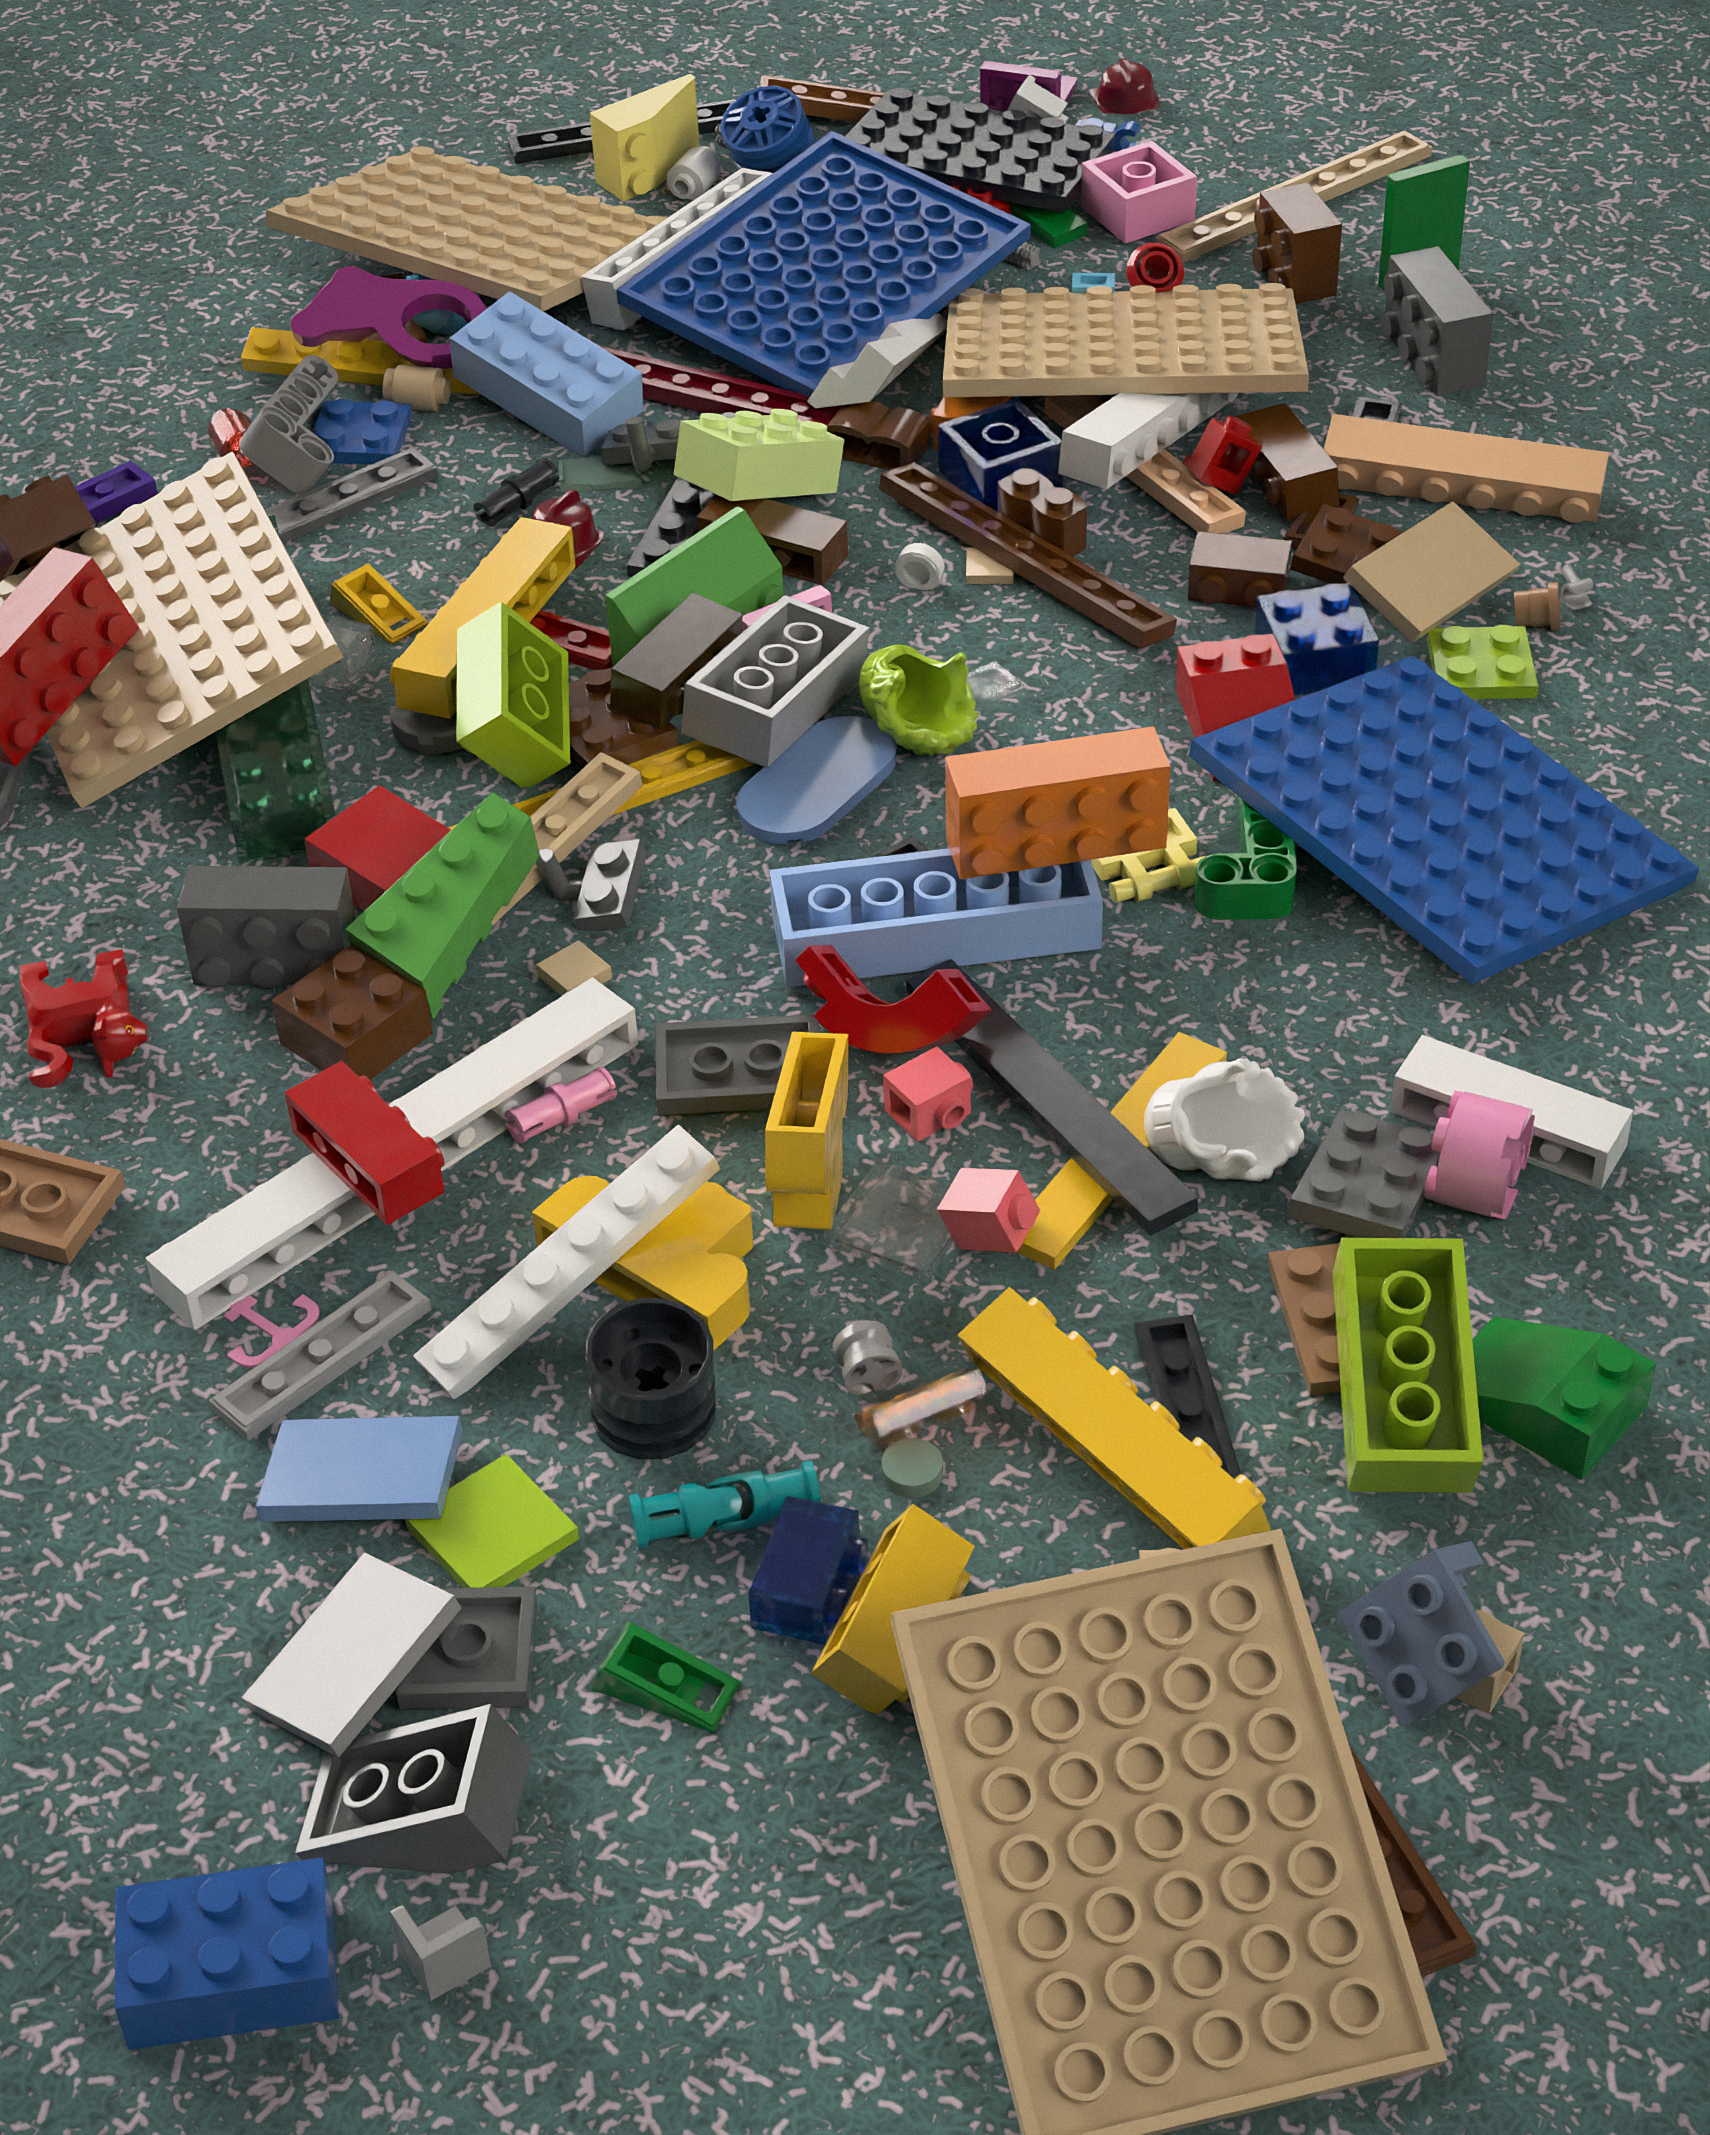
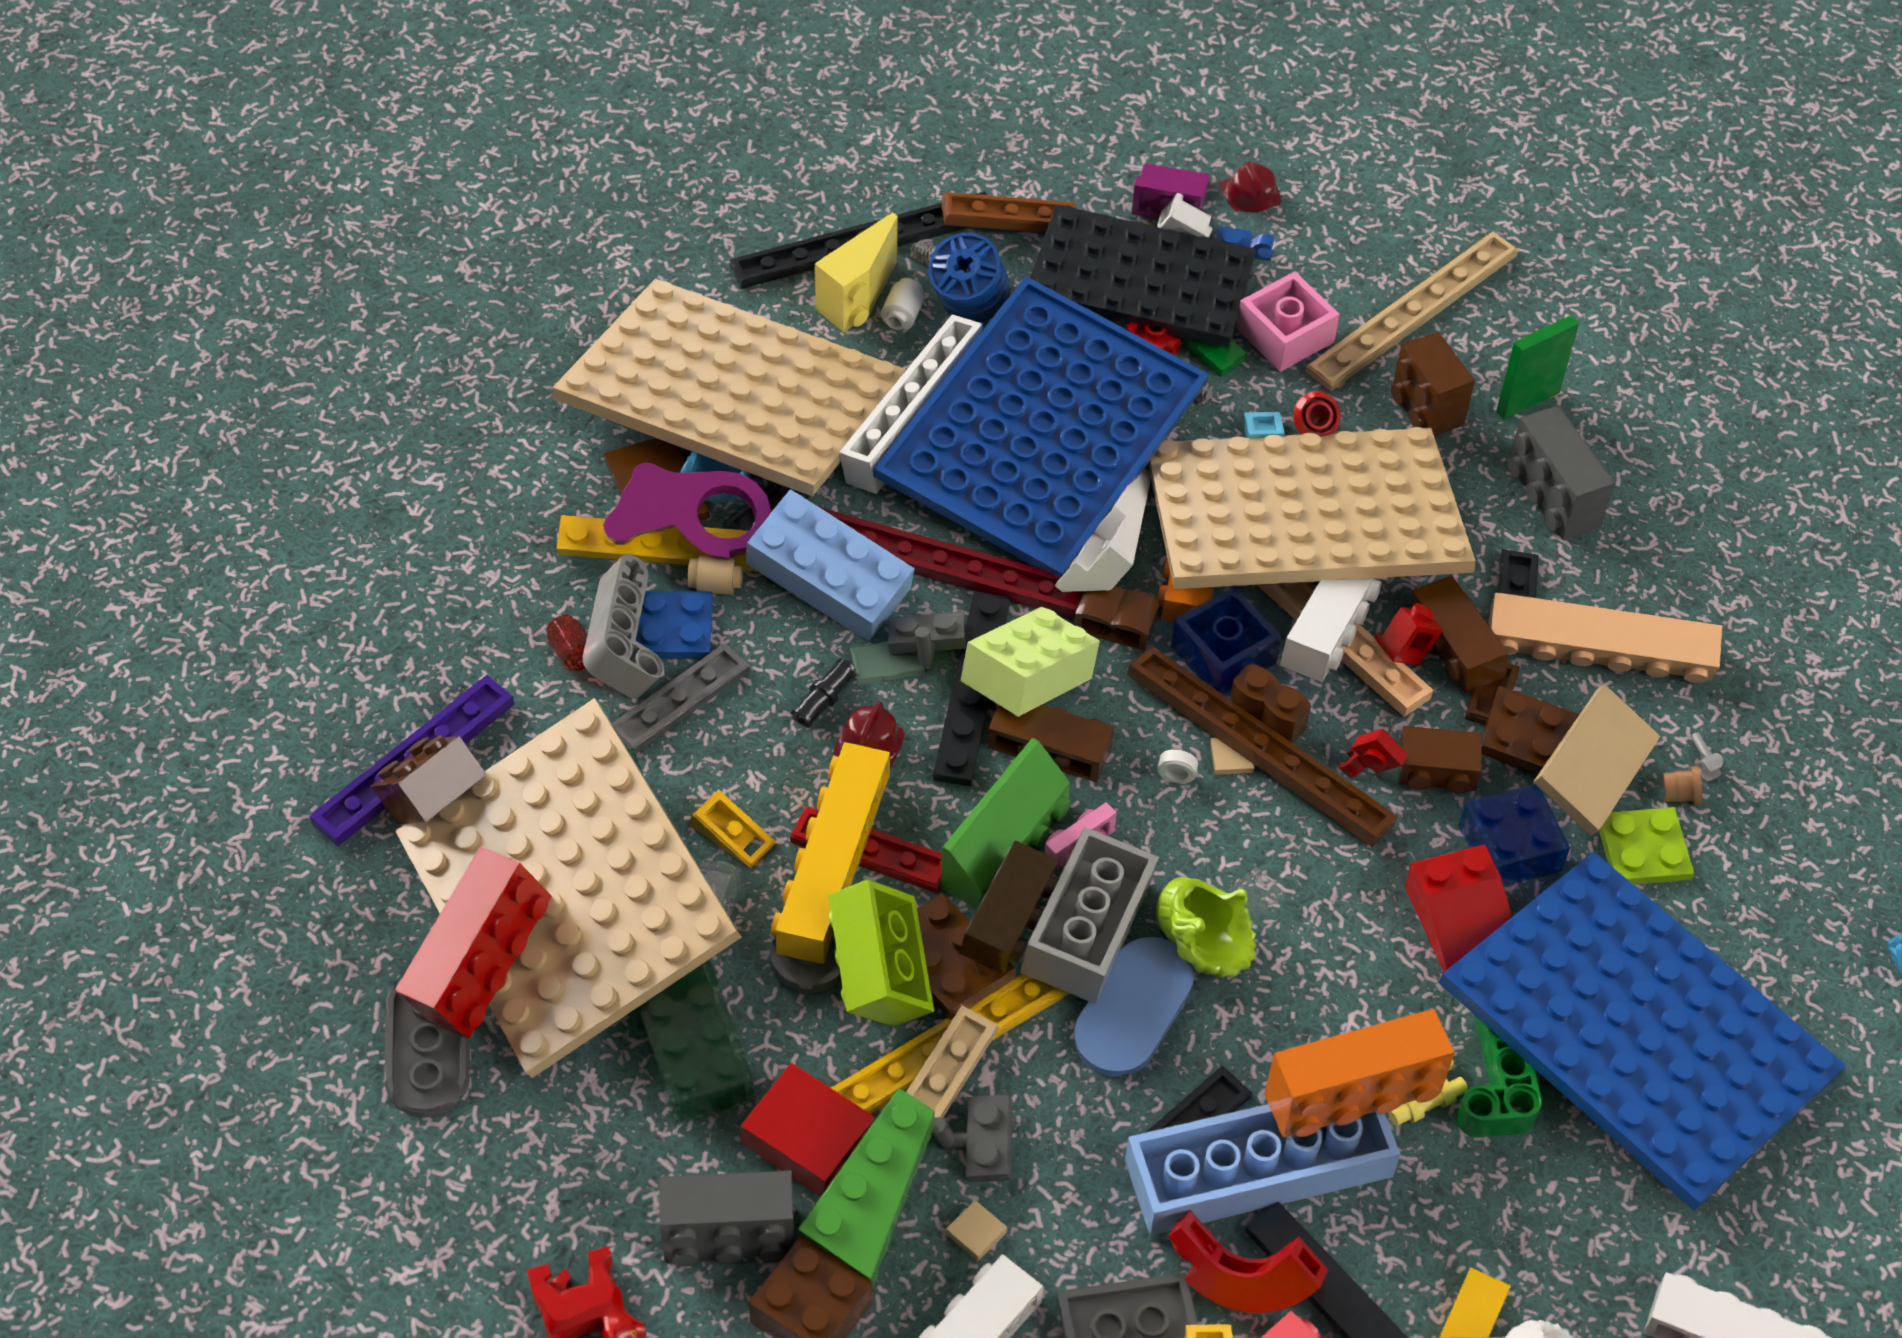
camera: 10 degrees left, 10 degrees up
(1159, 553) = (1374, 751): none -> red plate

